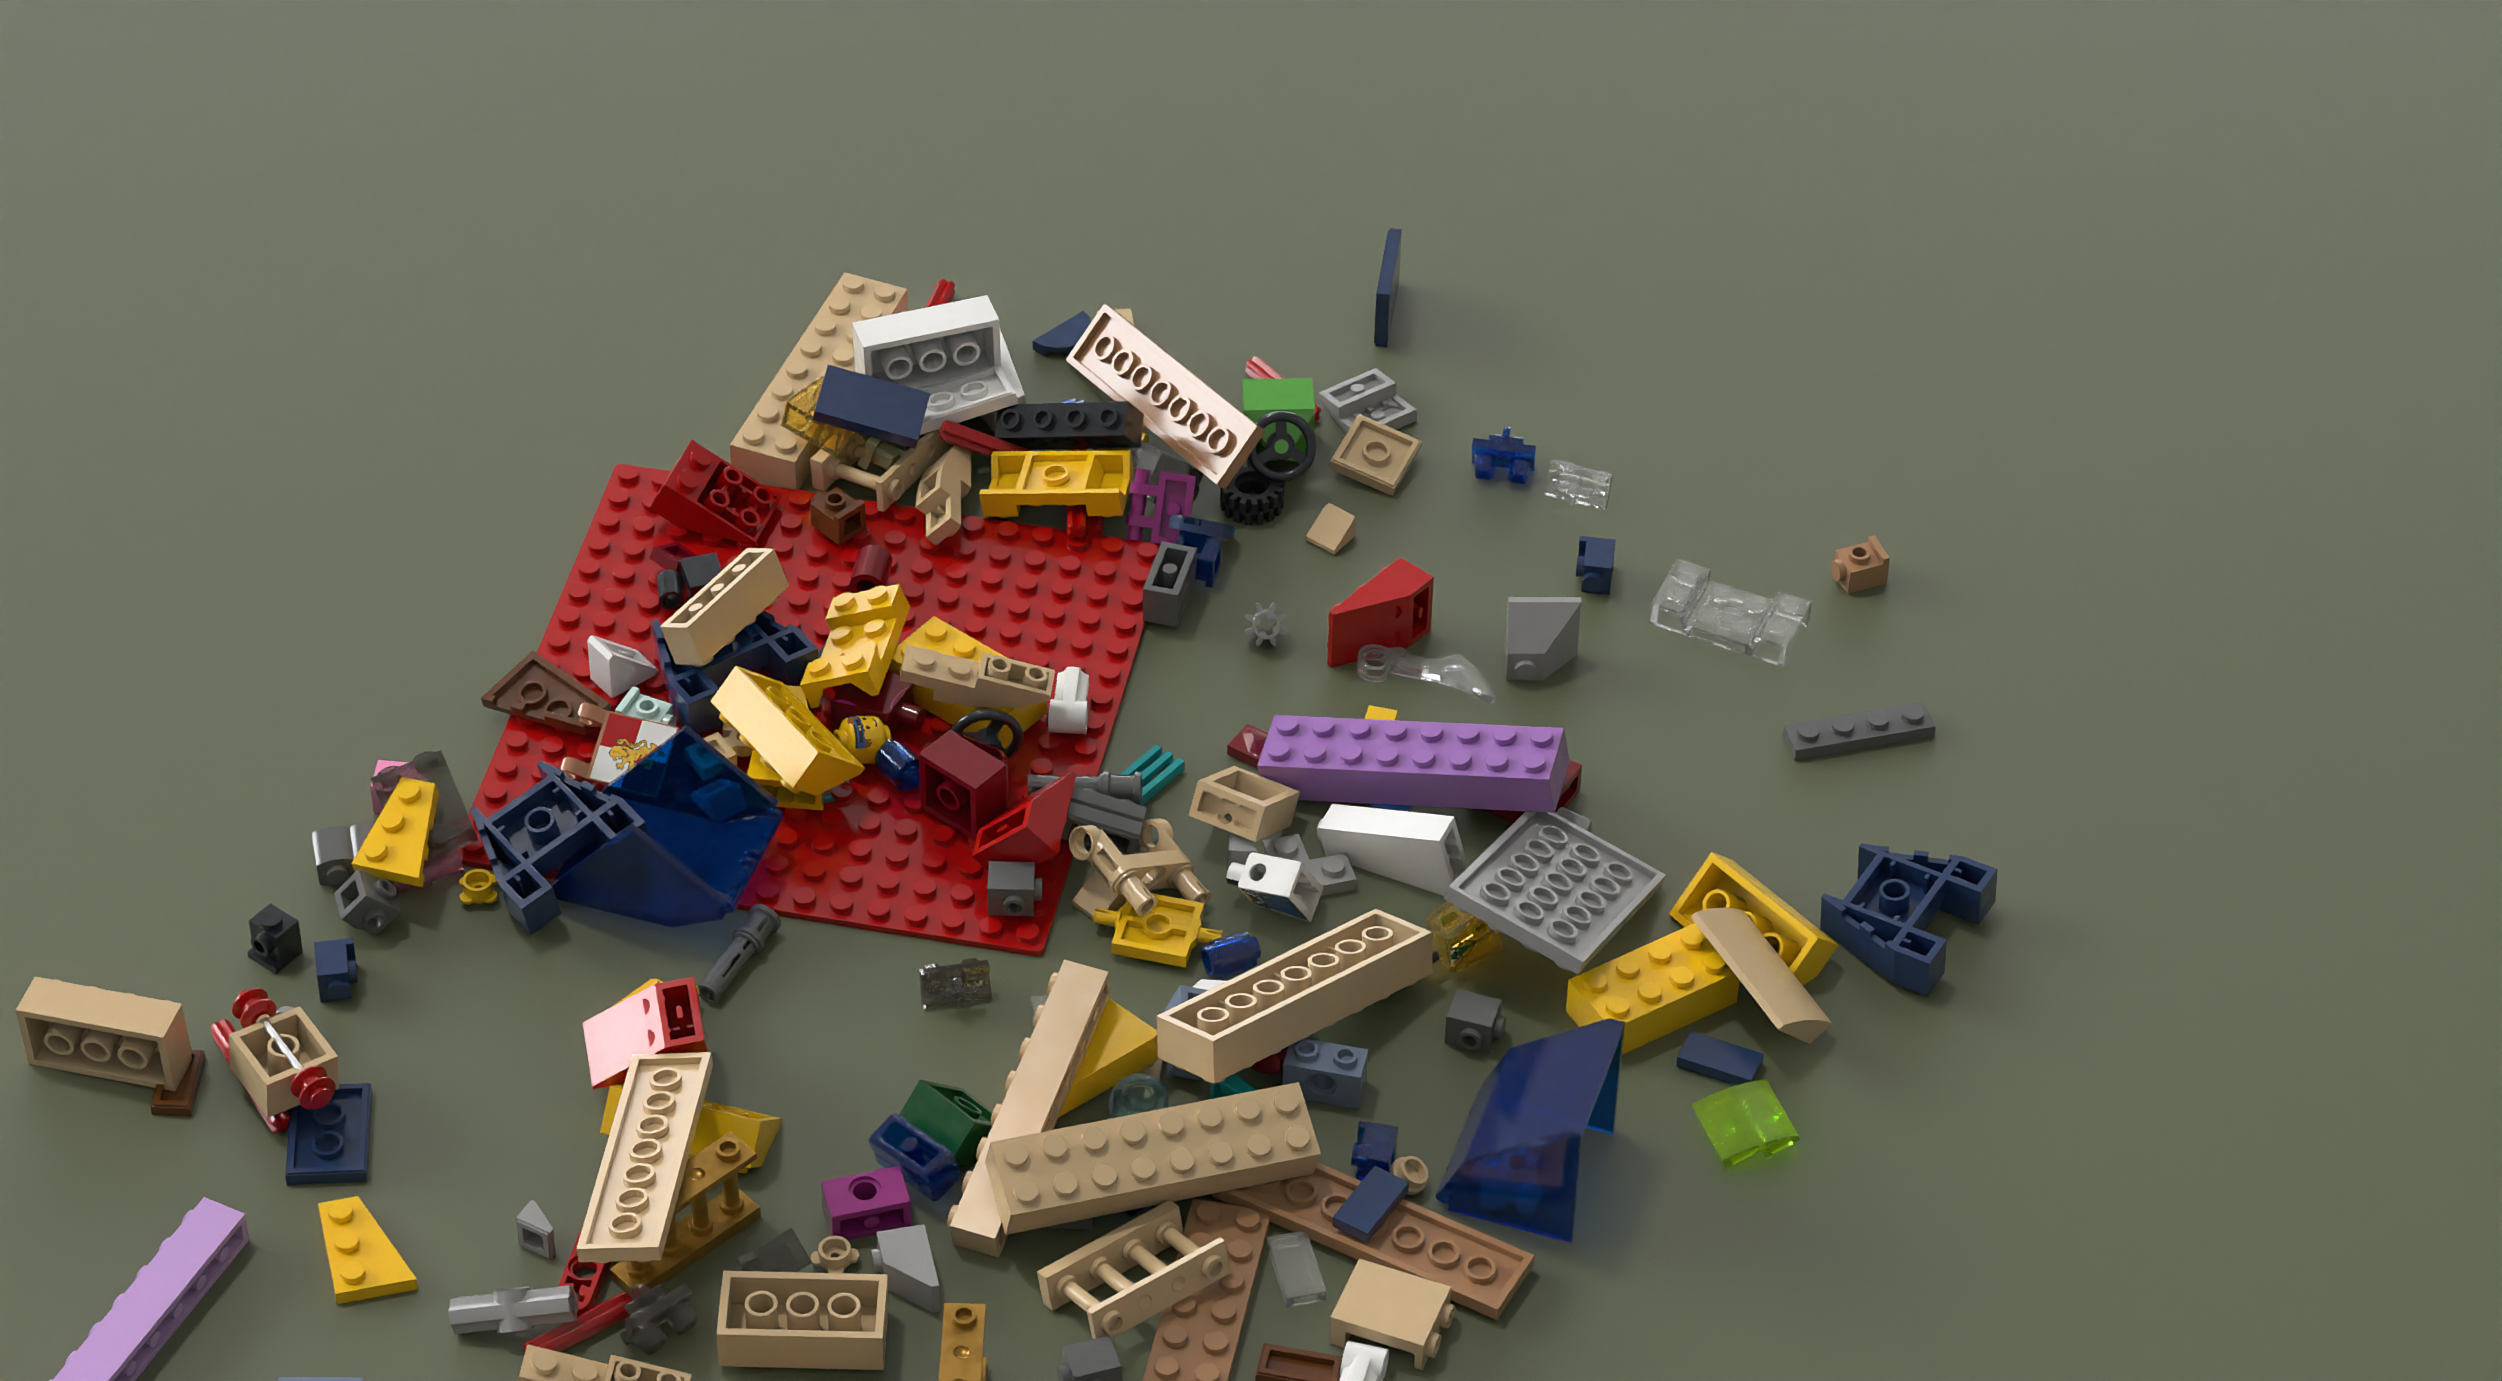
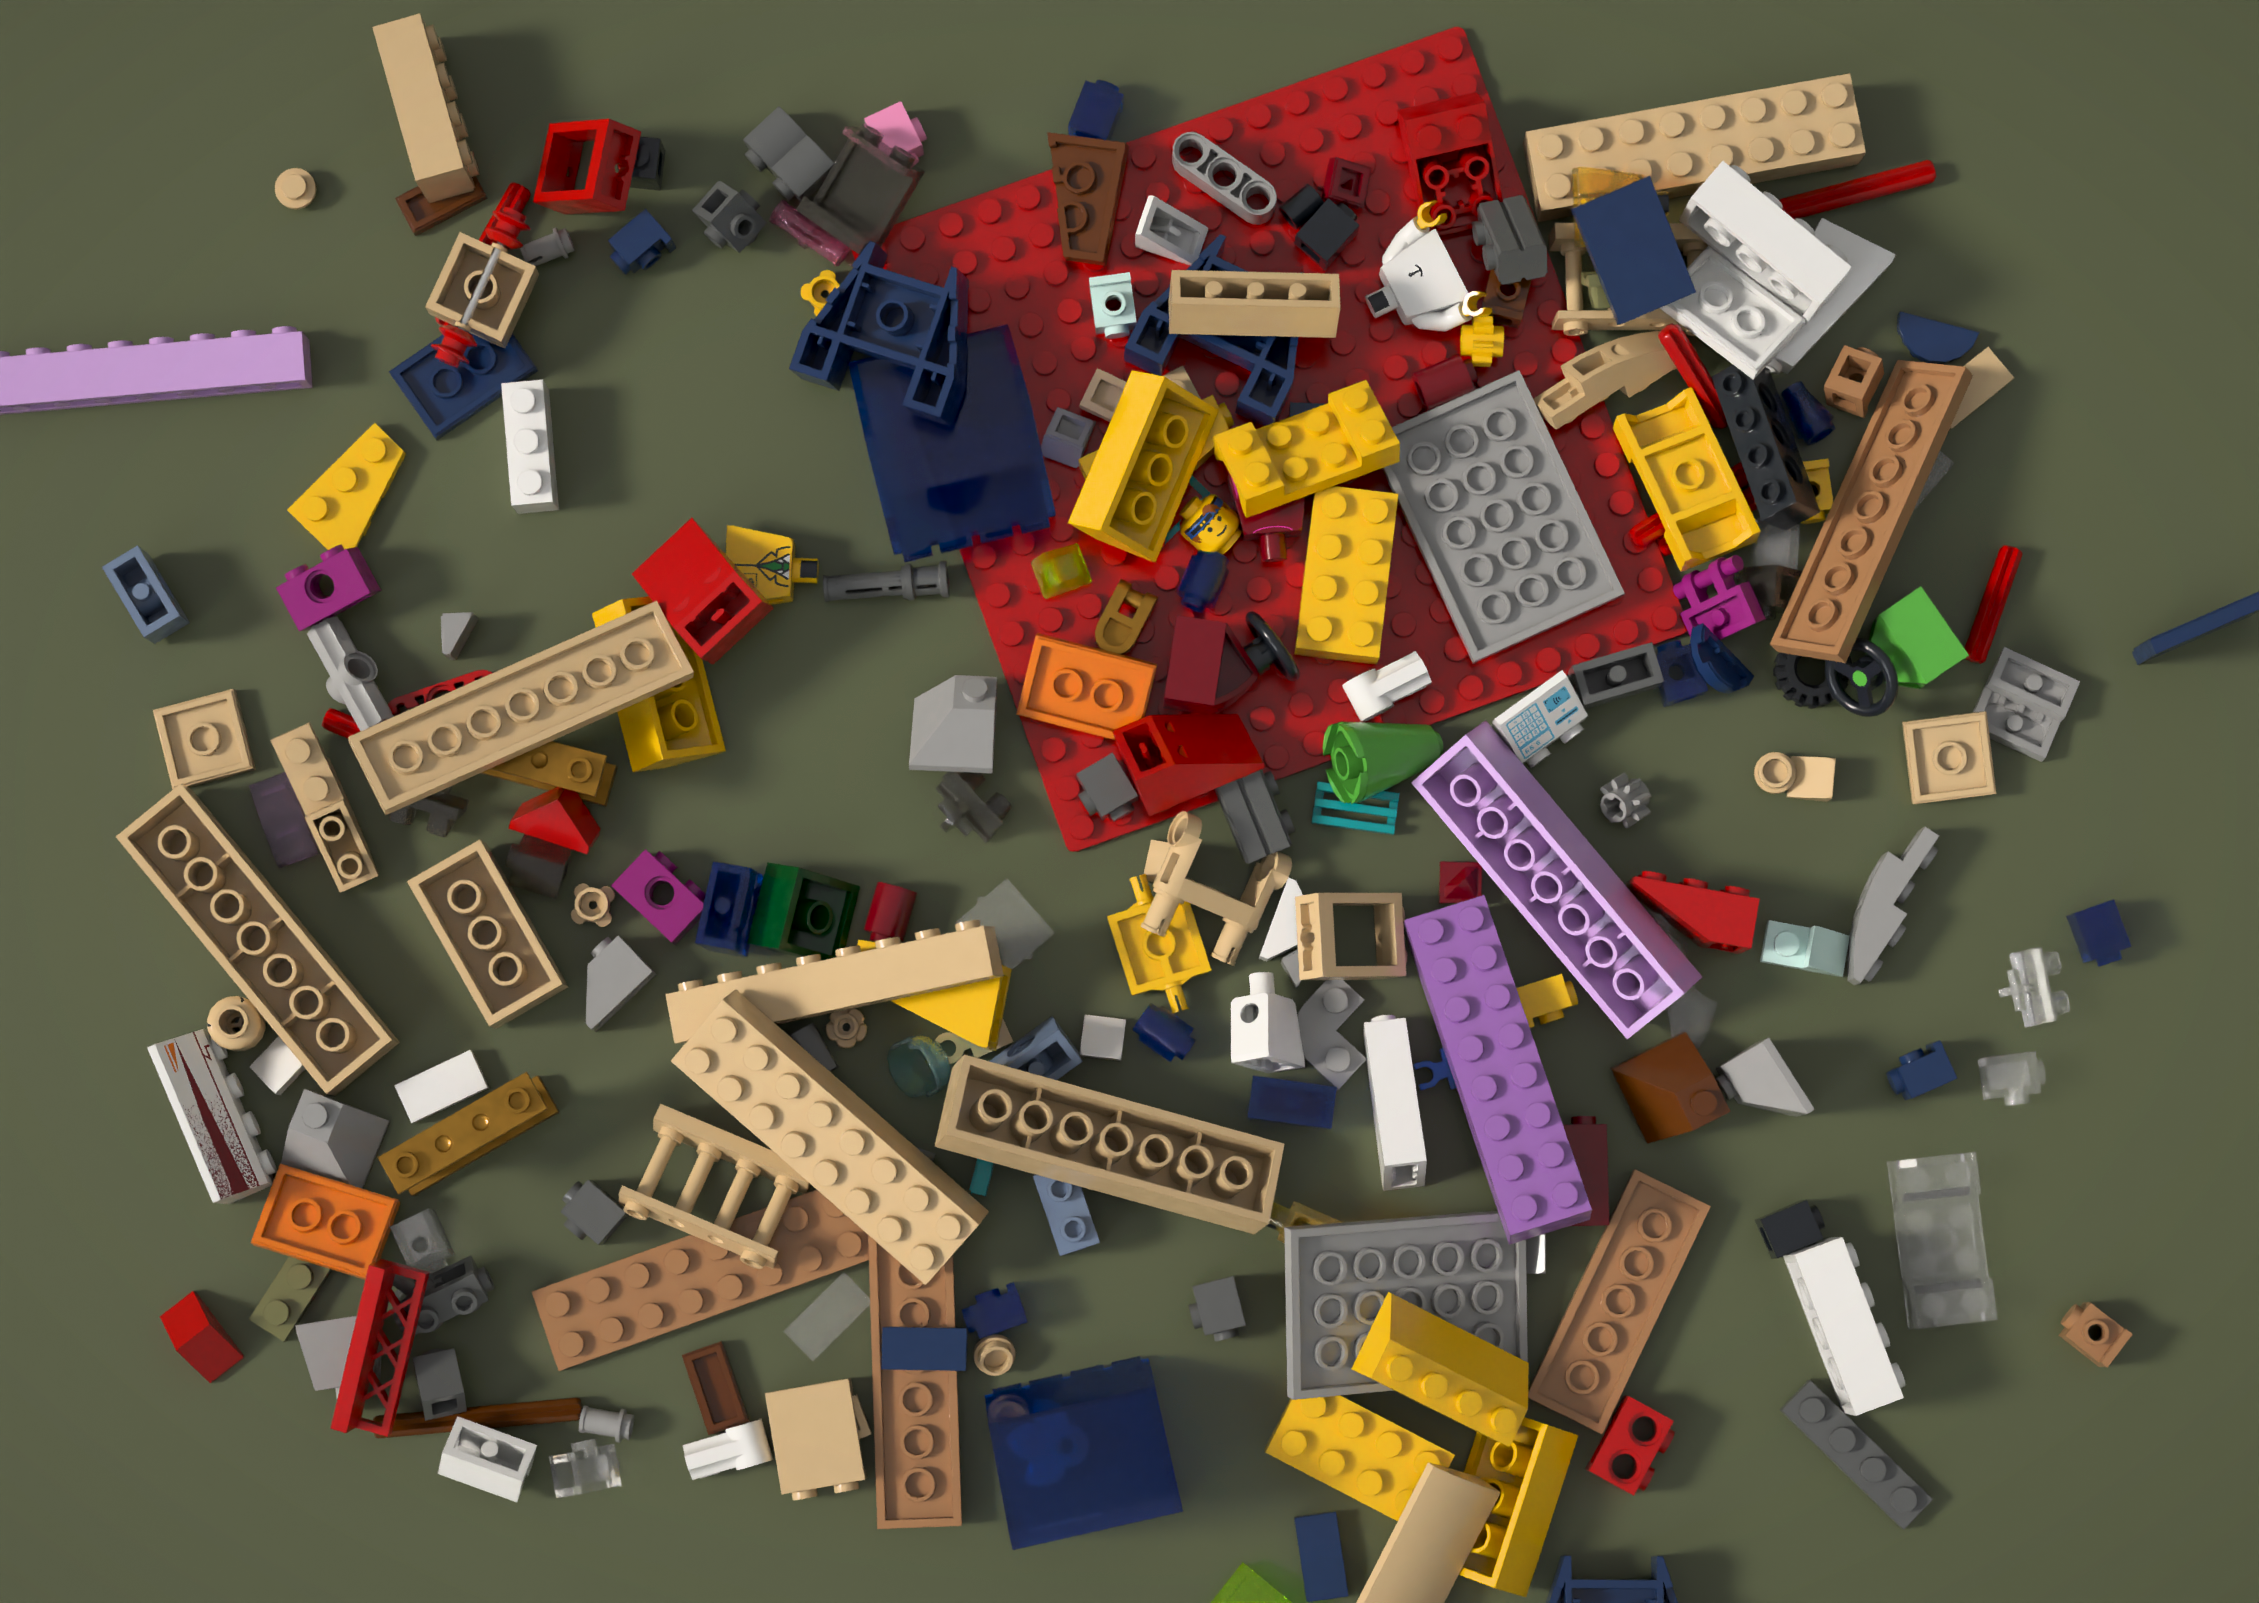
camera: 60 degrees right, 40 degrees up
(81, 1165) = (295, 188): none -> tan plate
(275, 964) = (604, 187): none -> red window
(400, 834) = (806, 195): yellow wing -> none
(425, 1265) = (351, 581): none -> magenta brick
(431, 1110) = (530, 446): none -> white brick
(488, 665) = (1096, 111): none -> clear blue brick
(609, 616) = (1216, 160): none -> light grey beam
(619, 744) = (1054, 321): flag -> none
(742, 1231) = (559, 819): none -> red slope
(800, 544) = (1423, 279): none -> white torso
(802, 480) = (1510, 240): none -> dark grey brick
(819, 848) = (1060, 570): none -> clear neon green slope
(857, 534) = (1482, 341): none -> yellow gear
(885, 952) = (955, 726): none -> light grey slope
(889, 824) = (1116, 631): none -> pearl gold plate
(923, 866) = (1084, 686): none -> orange tile
(985, 683) = (1313, 603): tan slope -> none
(992, 1066) = (889, 912): none -> dark red brick
(1004, 589) = (1498, 518): none -> light grey plate
(1062, 378) = (1843, 390): none -> medium nougat brick
(1114, 735) = (1377, 756): none -> bright green cone
(1116, 786) = (1295, 786): dark grey pin -> none
(1167, 638) = (1541, 719): none -> slope
(1203, 845) = (1283, 929): none -> white slope
(1295, 673) = (1556, 879): none -> lavender brick
(1311, 545) = (1775, 773): none -> tan plate
(1346, 895) = (1291, 1103): none -> clear blue brick
(1456, 589) = (1805, 948): none -> light aqua slope
(1457, 535) = (1876, 918): none -> light grey slope
(1503, 452) = (2019, 871): clear blue hips -> none
(1505, 691) = (1670, 1089): none -> reddish brown slope
(1565, 436) = (2099, 933): none -> clear blue brick
(1630, 890) = (1446, 1369): none -> yellow slope
(1635, 524) = (2011, 1077): none -> clear brick
(1646, 801) = (1617, 1301): none -> medium nougat plate
(1660, 684) = (1790, 1228): none -> black brick
(1754, 675) = (1844, 1325): none -> white brick
(1761, 840) = (1620, 1440): none -> red brick

